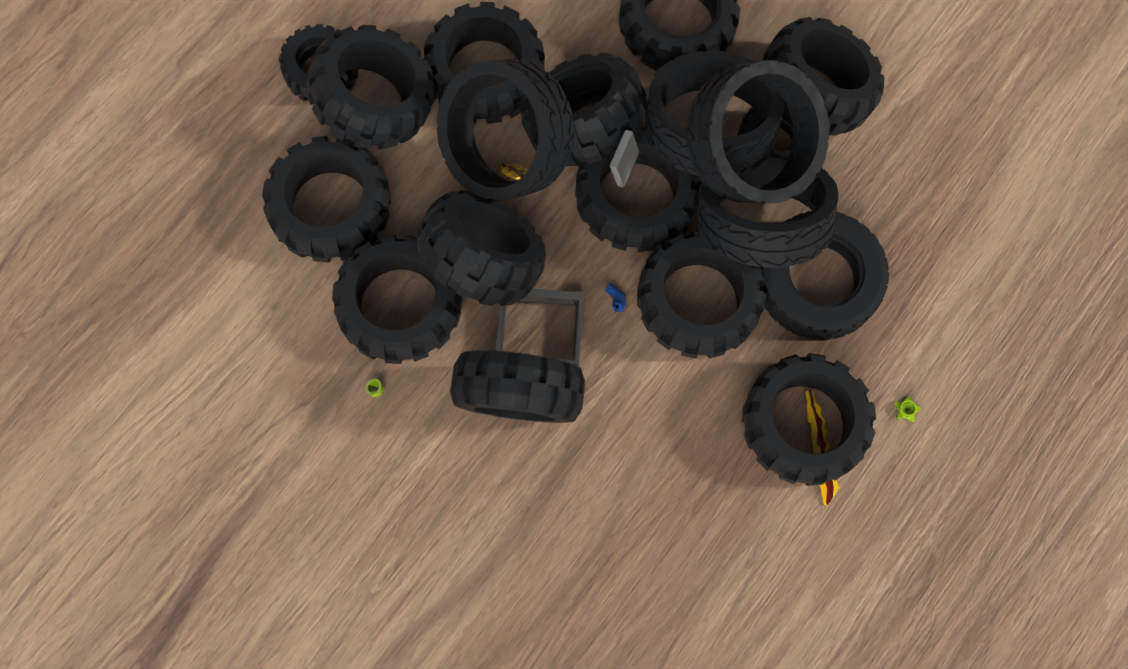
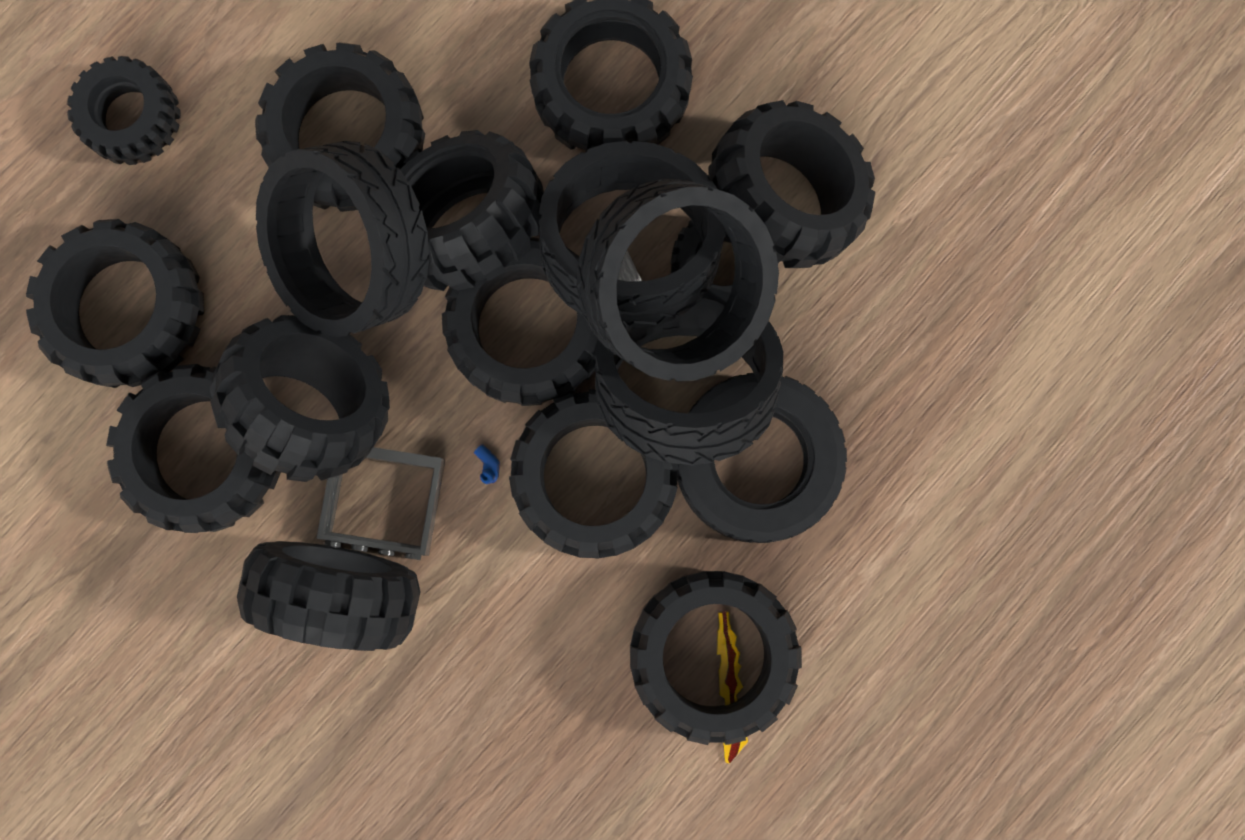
camera: 10 degrees right, 10 degrees up
(376, 384) = (158, 566): lime hinge -> none
(381, 54) = (183, 105): black tyre -> none
(513, 170) = (357, 284): yellow sword -> none
(624, 158) = (501, 290): light grey tile -> none
(902, 413) = (854, 651): lime plate -> none

